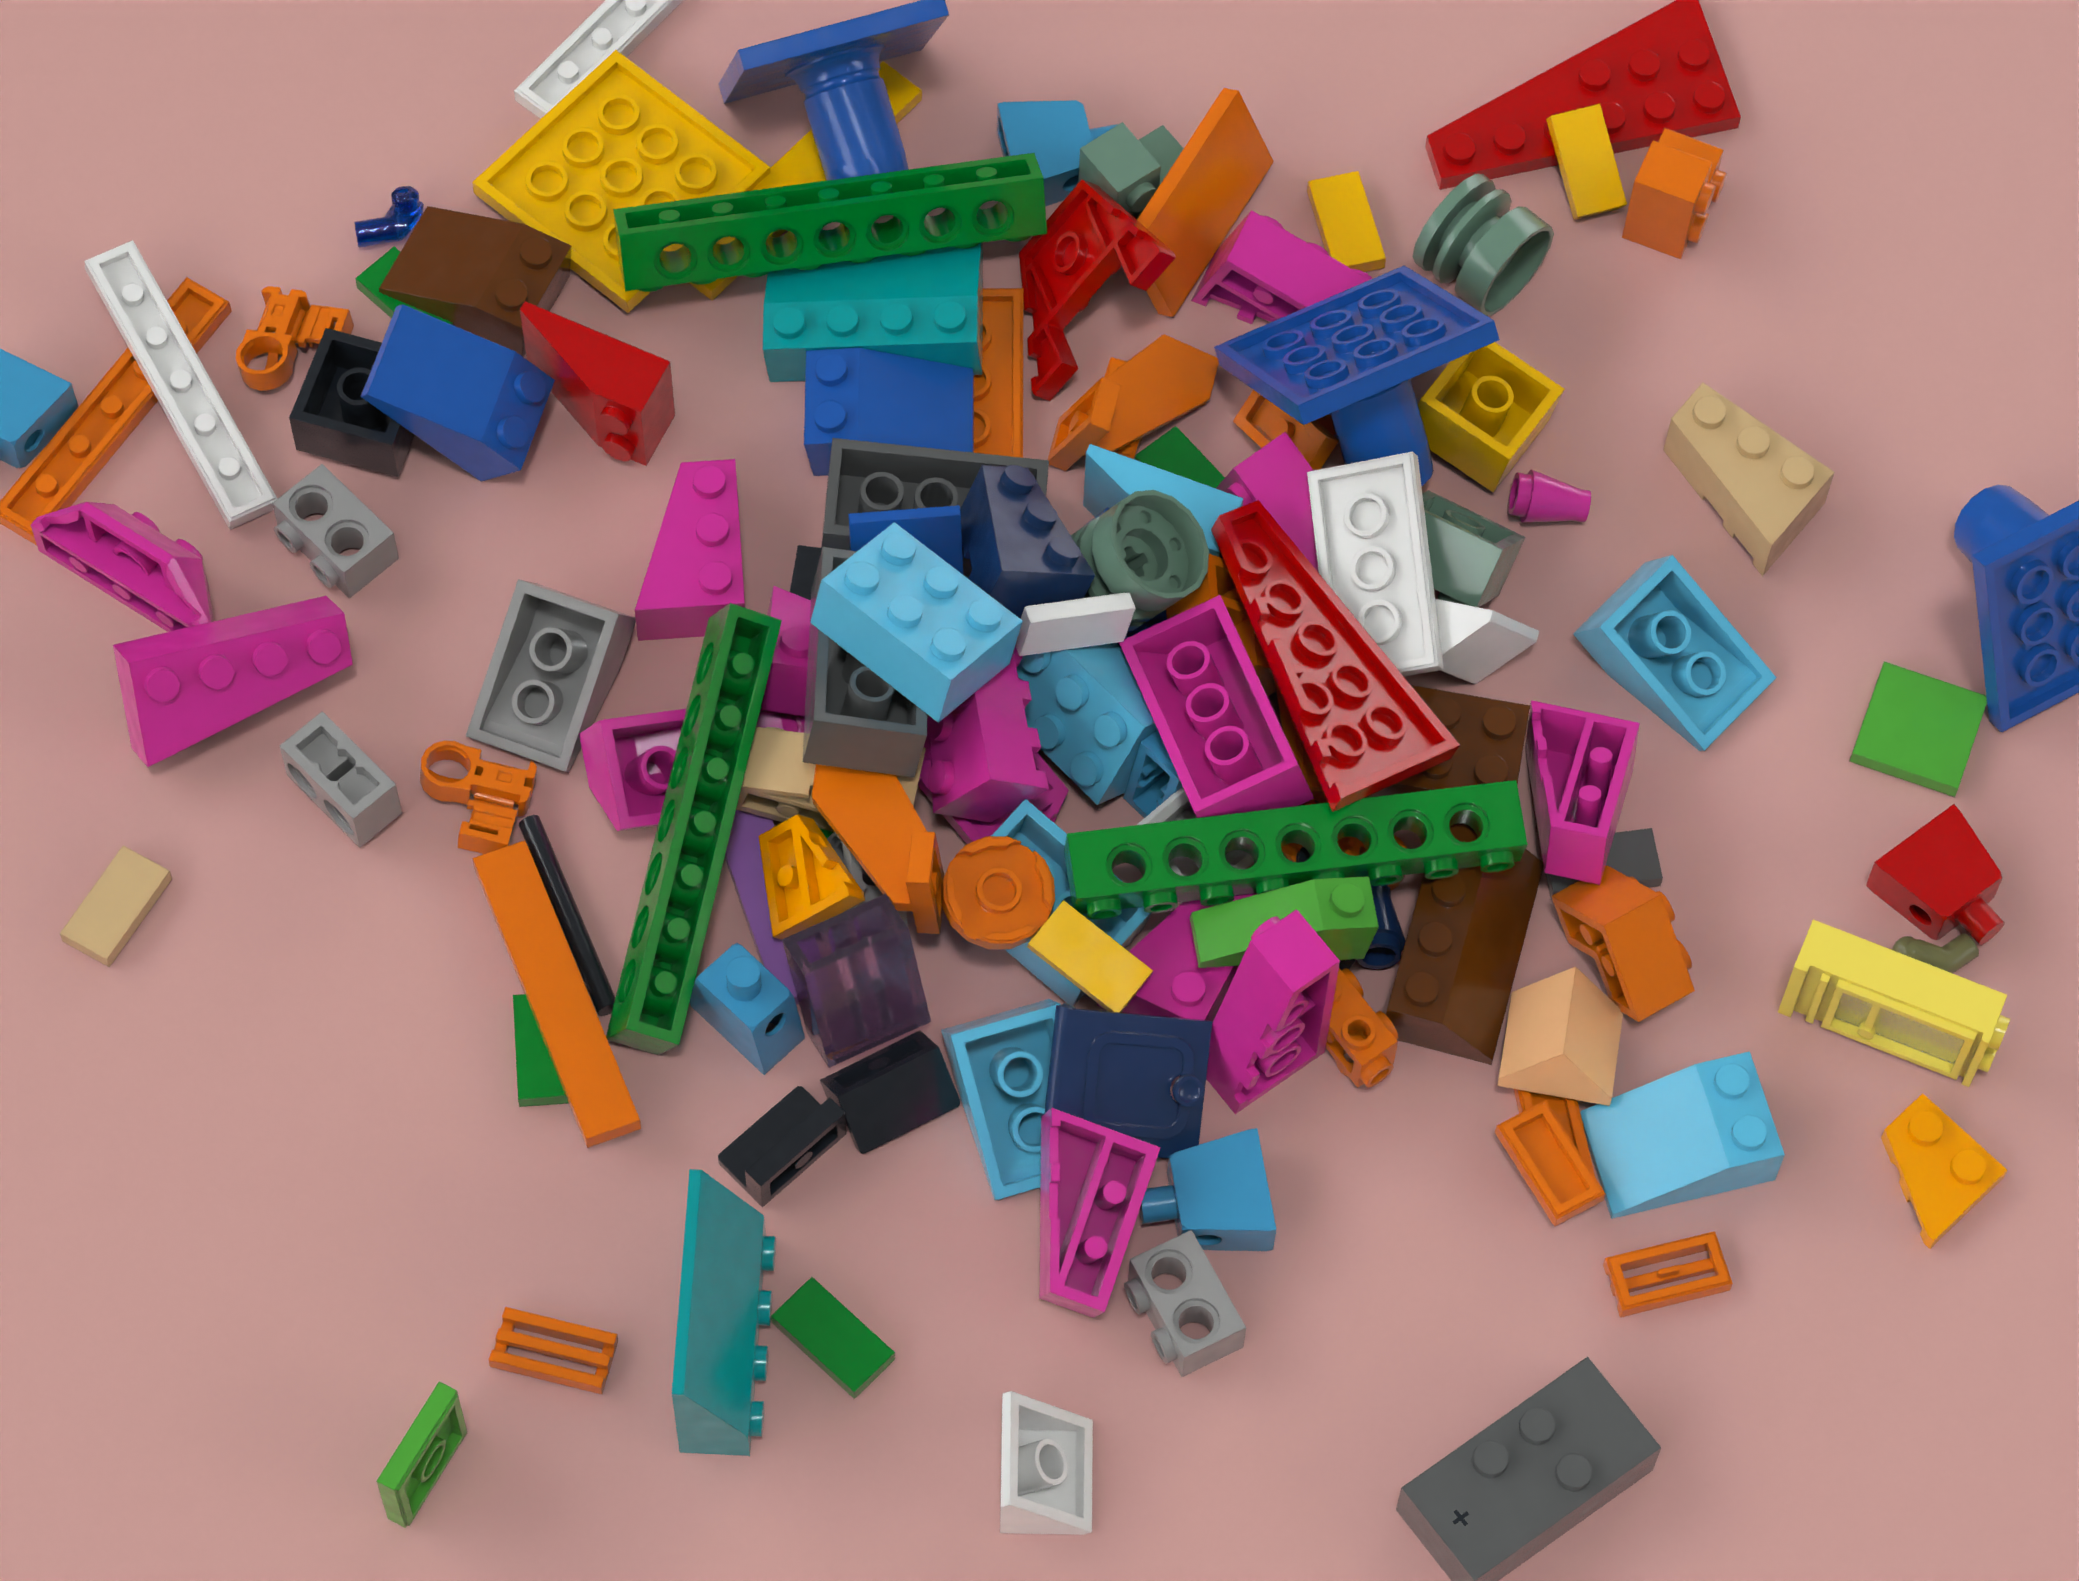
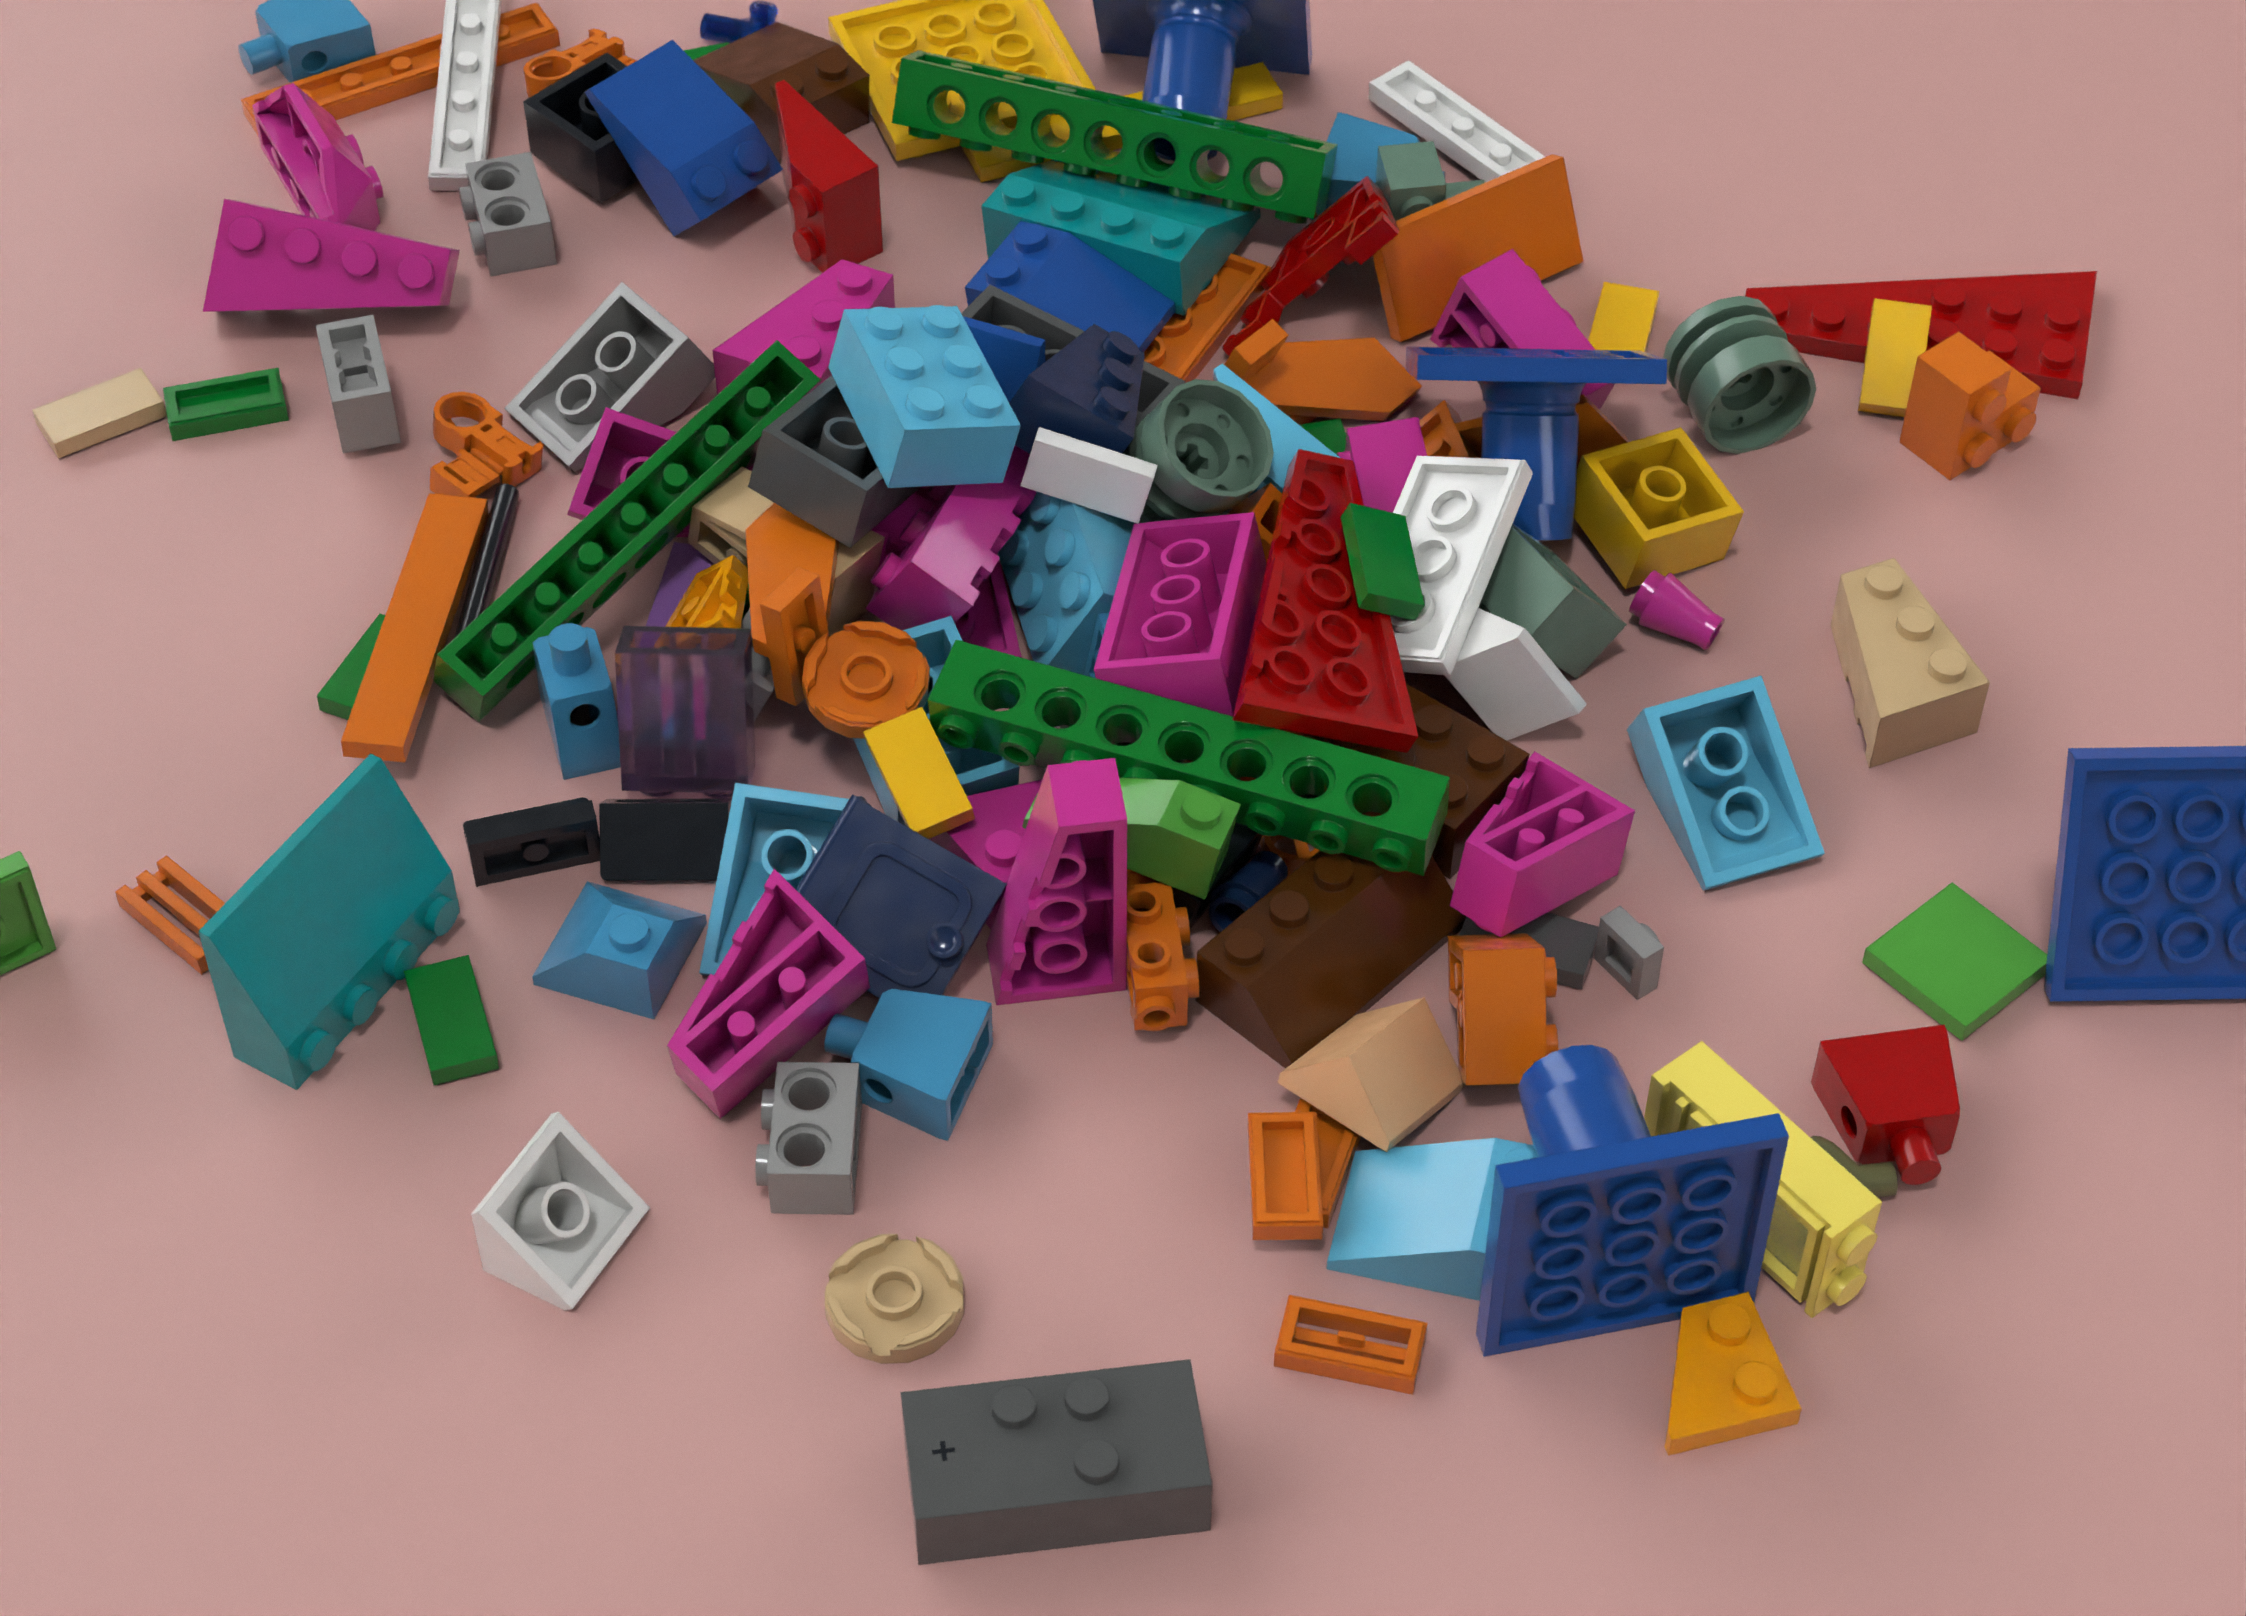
camera: 30 degrees right, 15 degrees down
(219, 844) = (225, 404): none -> green tile
(919, 1209) = (620, 950): none -> dark azure slope
(1099, 66) = (1450, 122): none -> white plate
(1321, 1403) = (894, 1298): none -> tan tile
(1344, 594) = (1382, 561): none -> green tile
(1687, 841) = (1629, 952): none -> light grey plate
(1810, 1071) = (1615, 1220): none -> blue piece

